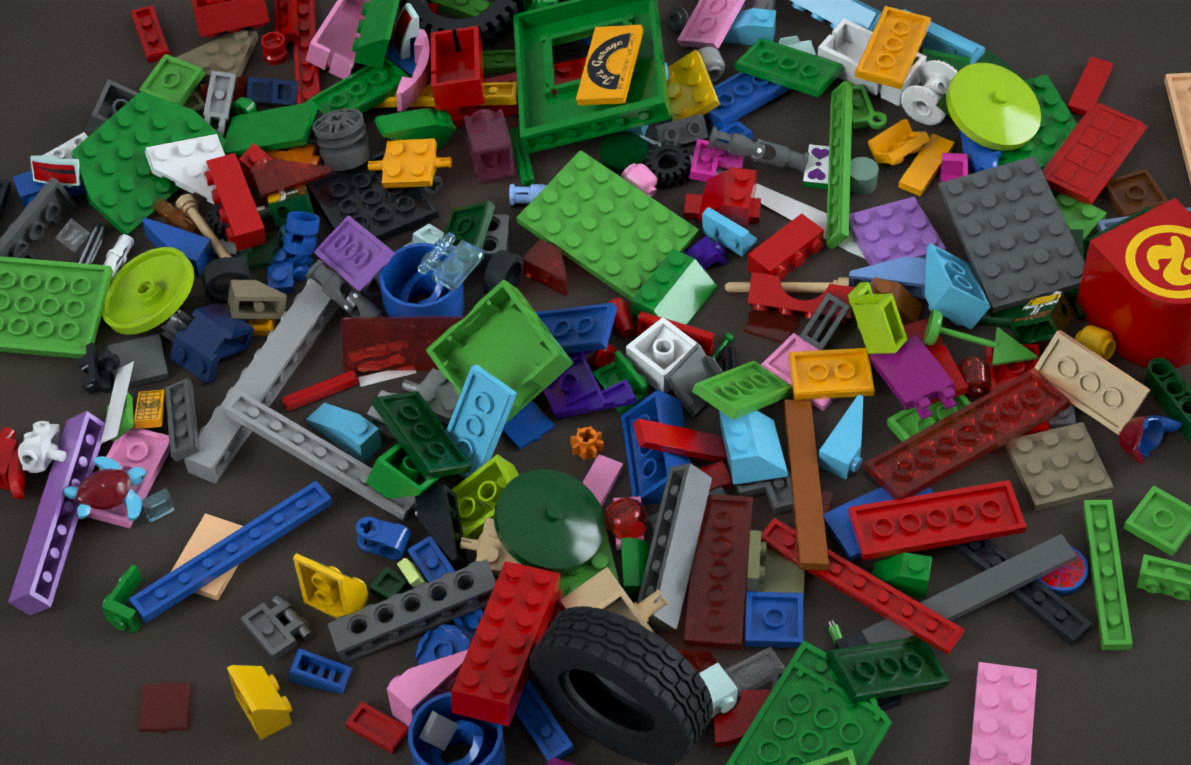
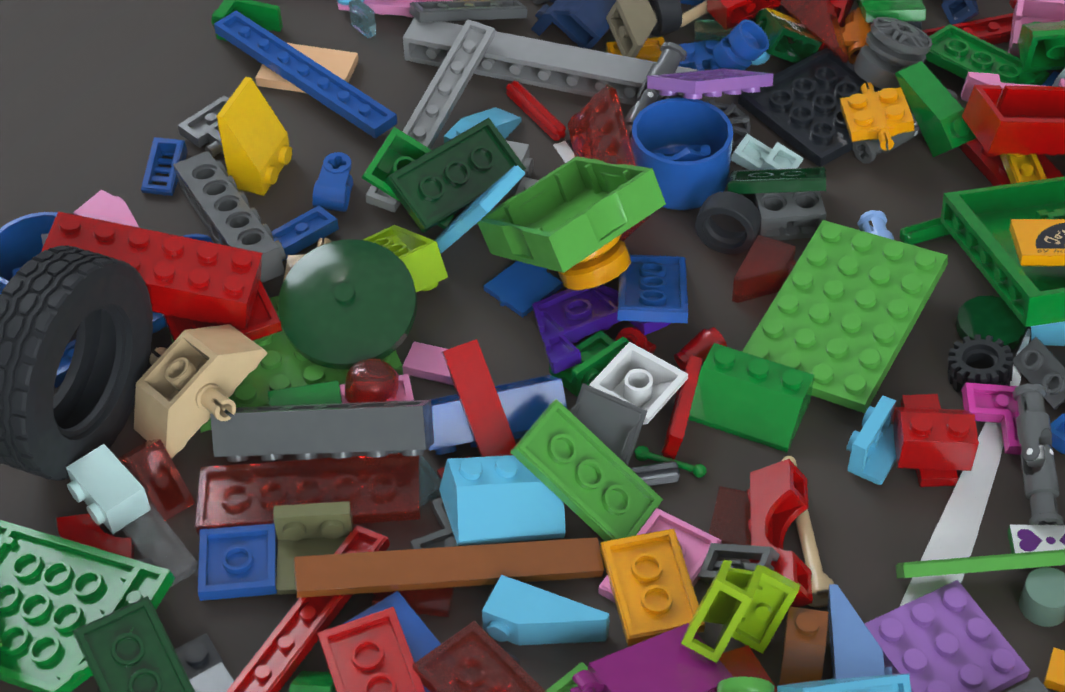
camera: 80 degrees right, 5 degrees down
(165, 707) = (128, 71): clear red piece -> none
(260, 699) = (118, 117): yellow slope -> none
(388, 584) = (274, 201): dark green plate -> none
(411, 572) = (283, 211): yellowish green tile -> none
(440, 516) = (361, 220): black slope -> none
(456, 266) = (700, 155): clear light blue plate -> none
(487, 138) = (931, 173): clear pink piece -> none
(587, 443) = (493, 340): orange gear -> none
(641, 178) = (936, 338): bright pink head -> none
(707, 252) = (833, 424): dark purple bracket -> none
(787, 248) = (867, 514): red brick -> none
(835, 632) = (226, 638): bright green piece -> none

